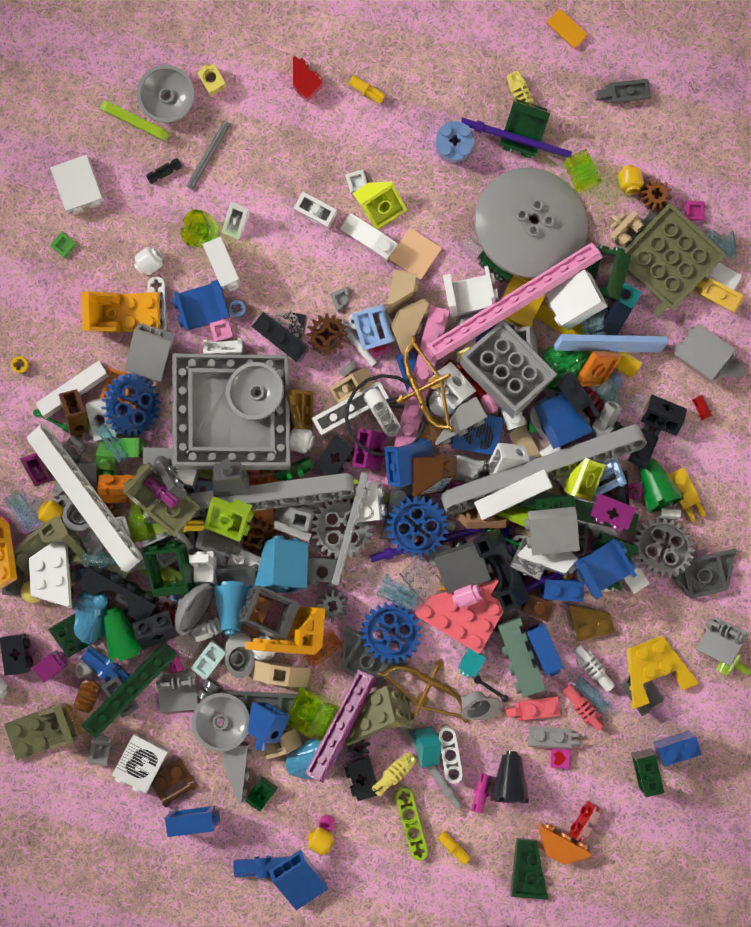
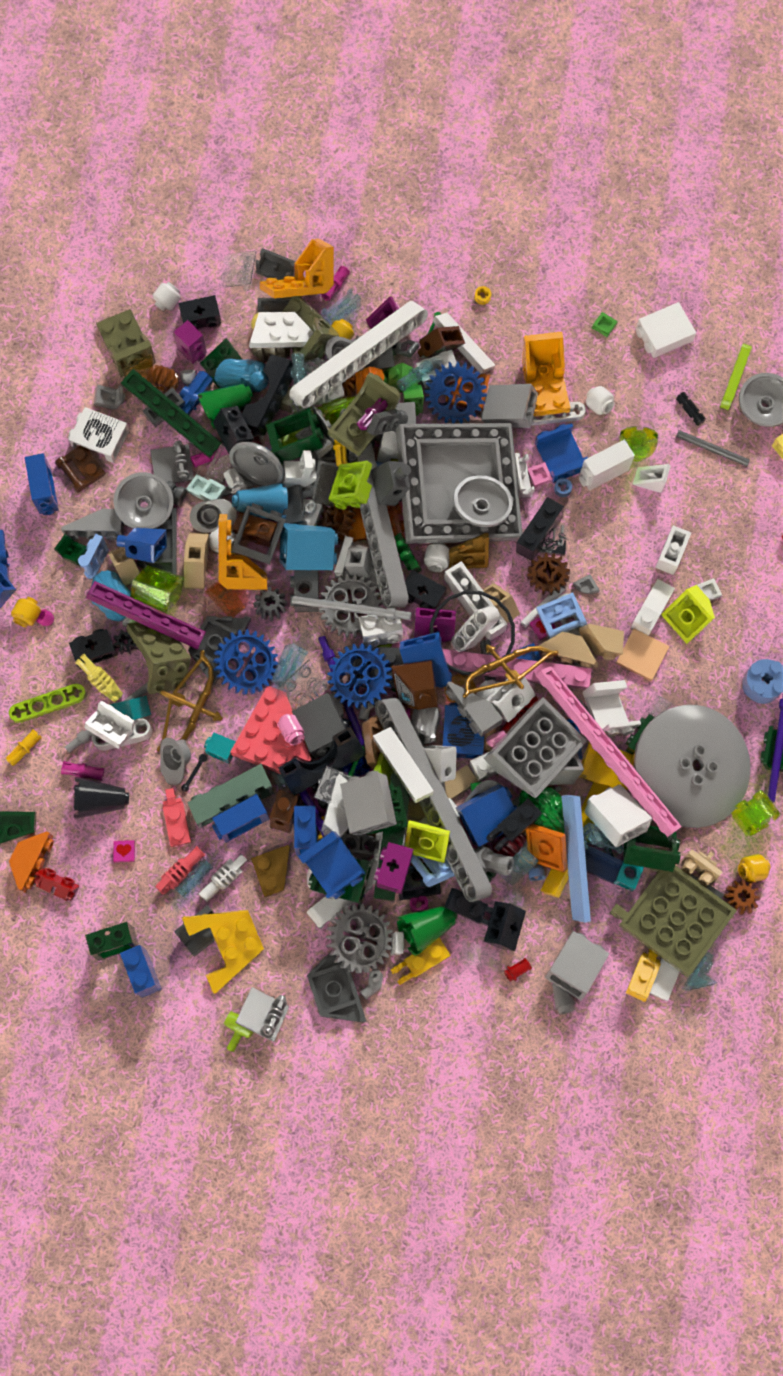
camera: 80 degrees right, 15 degrees down
(267, 770) = (95, 554): none -> light blue plate
(348, 368) = (519, 600): light grey tile -> none
(446, 765) = (110, 725): none -> white bracket
(553, 738) = (145, 840): light grey hinge -> none
(695, 210) = (730, 942): dark pink tile -> none
(703, 538) = (374, 984): none -> light grey arm

